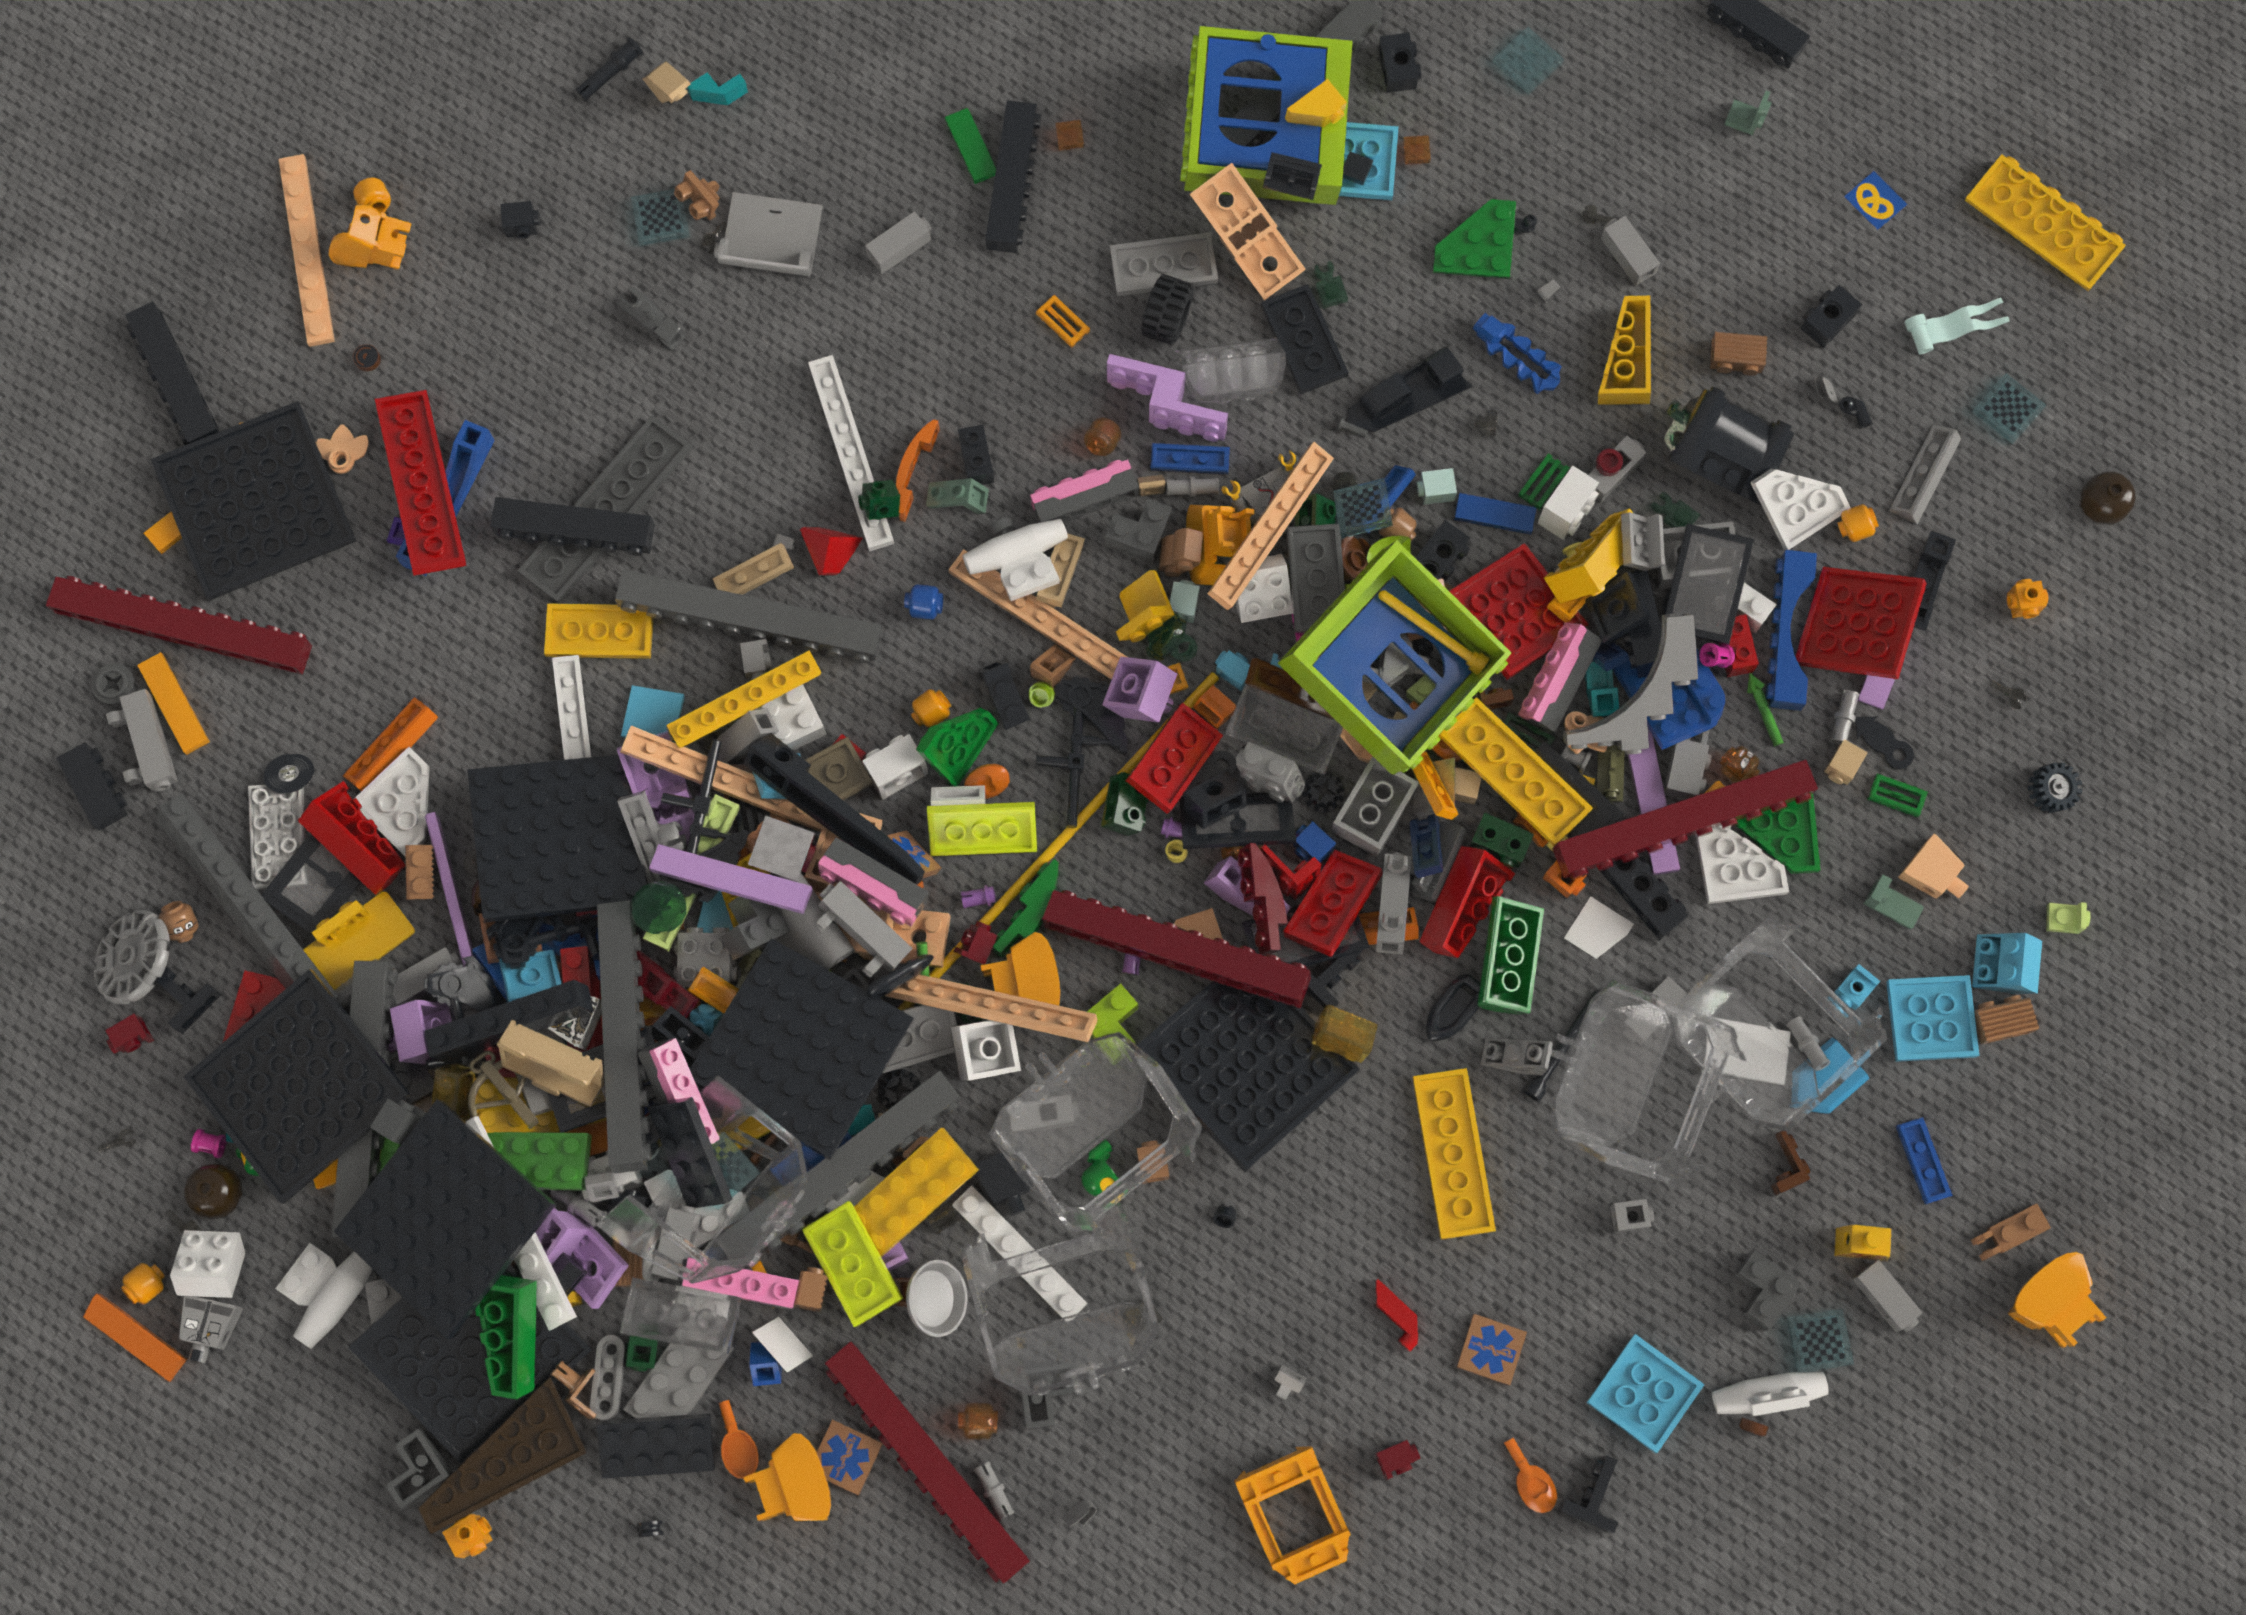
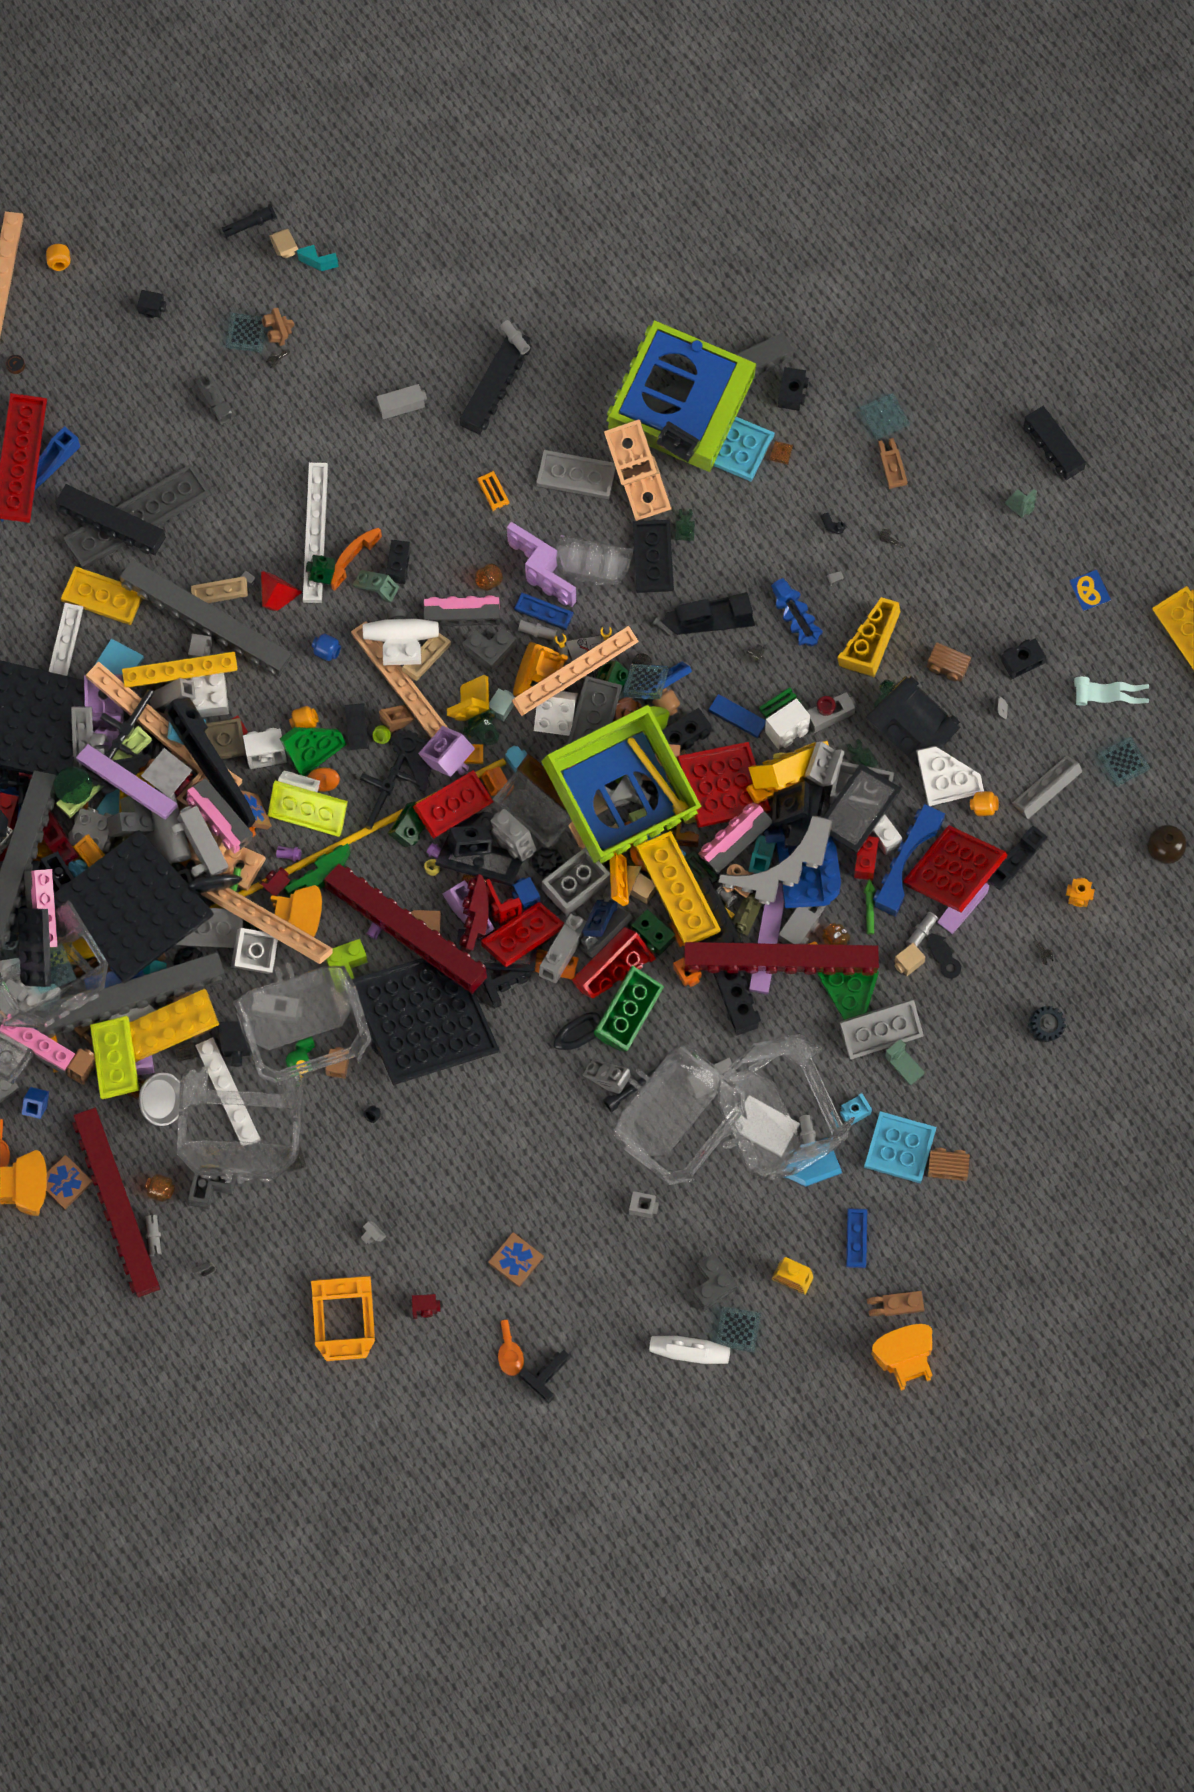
camera: 20 degrees right, 5 degrees down
(359, 246) = (37, 289): light orange piece -> none
(770, 234) = (315, 372): light grey door -> none
(782, 1344) = (50, 1094): white sticker -> none
(971, 145) = (476, 351): green tile -> none
(1018, 108) = (515, 337): none -> light grey pin
(1069, 135) = (546, 366): clear orange plate -> none
(1151, 485) = (510, 620): tan slope -> none
(1167, 309) = (564, 505): black tyre -> none
(1180, 552) = (510, 670): medium nougat brick -> none
(1318, 107) = (713, 400): yellow slope -> none
(1344, 1034) = (497, 1022): clear yellow brick -> none
(1357, 168) = (733, 452): black tile -> none
(1399, 1314) = (463, 1215): red piece -> none
(1437, 486) = (704, 684): light aqua brick -> none
(1453, 1154) = (540, 1125): yellow plate -> none
(1480, 243) = (799, 530): green plate -> none
(1563, 119) = (892, 465): none -> medium nougat hinge
(1597, 928) = (697, 1013): white sticker -> none
(1630, 250) = (901, 568): light grey brick -> none
(1645, 1393) = (606, 1322): medium azure plate -> none
(1718, 651) = (847, 856): dark pink bush -> none
(1737, 868) = (807, 1005): white plate -> none
(1753, 1427) = (672, 1369): reddish brown tile -> none
(1799, 1166) = (757, 1218): reddish brown bracket -> none
(1847, 868) = (881, 1028): none -> light grey plate
(1857, 409) = (1017, 727): black arm -> none
(1888, 1297) = (794, 1315): light grey brick -> none
(1894, 804) = (925, 984): green tile -> none
(1935, 870) = (941, 1050): light nougat torso -> none
(2007, 963) = (966, 1128): medium azure slope -> none
(2067, 918) = (1020, 1113): yellowish green bracket -> none

